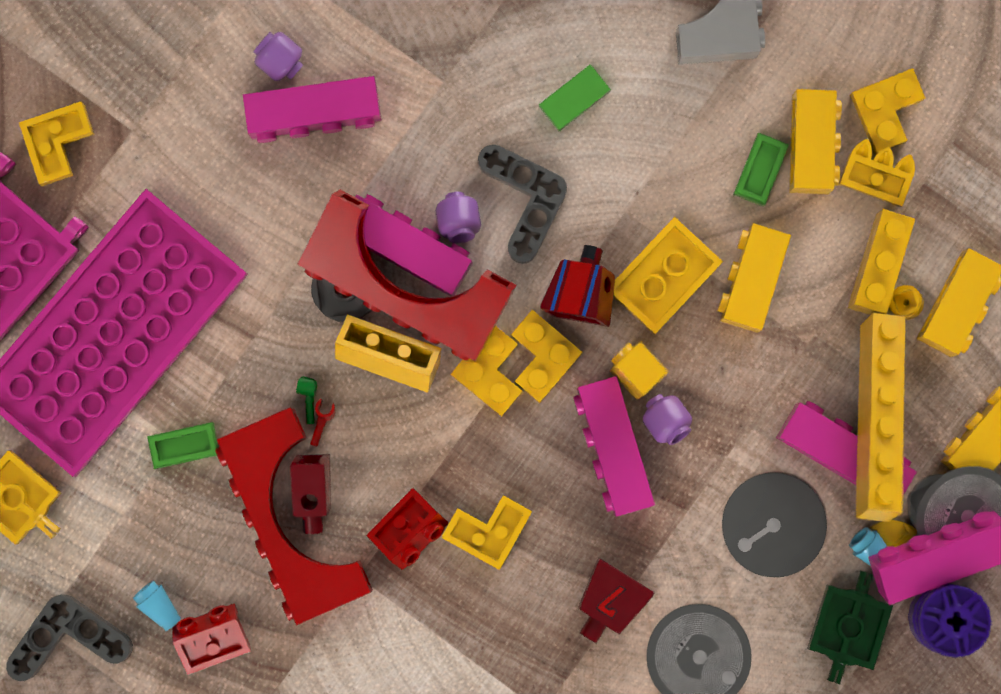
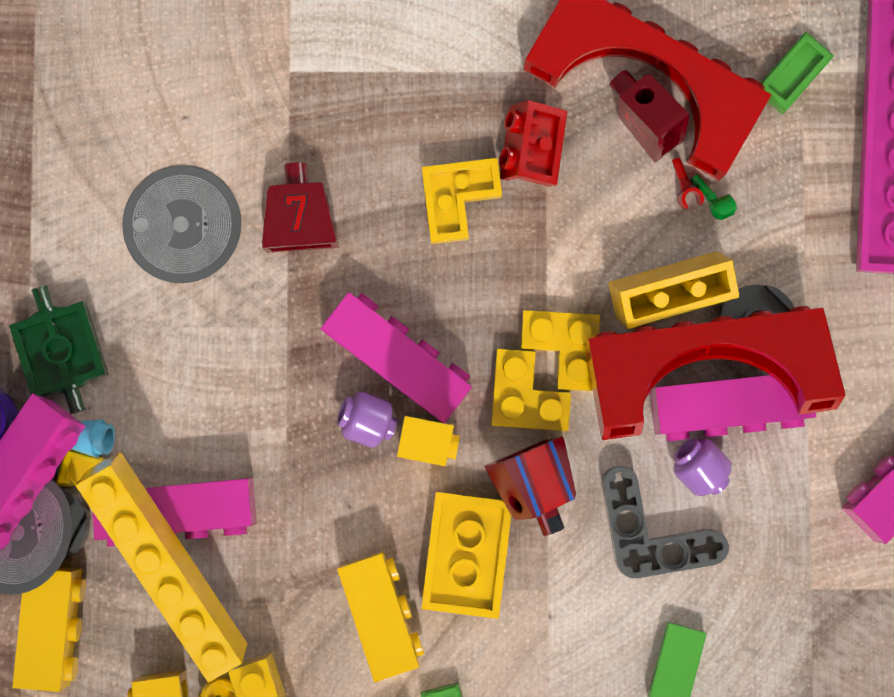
camera: 140 degrees right, 0 degrees up
(774, 525) = (196, 395): dark grey piece -> none

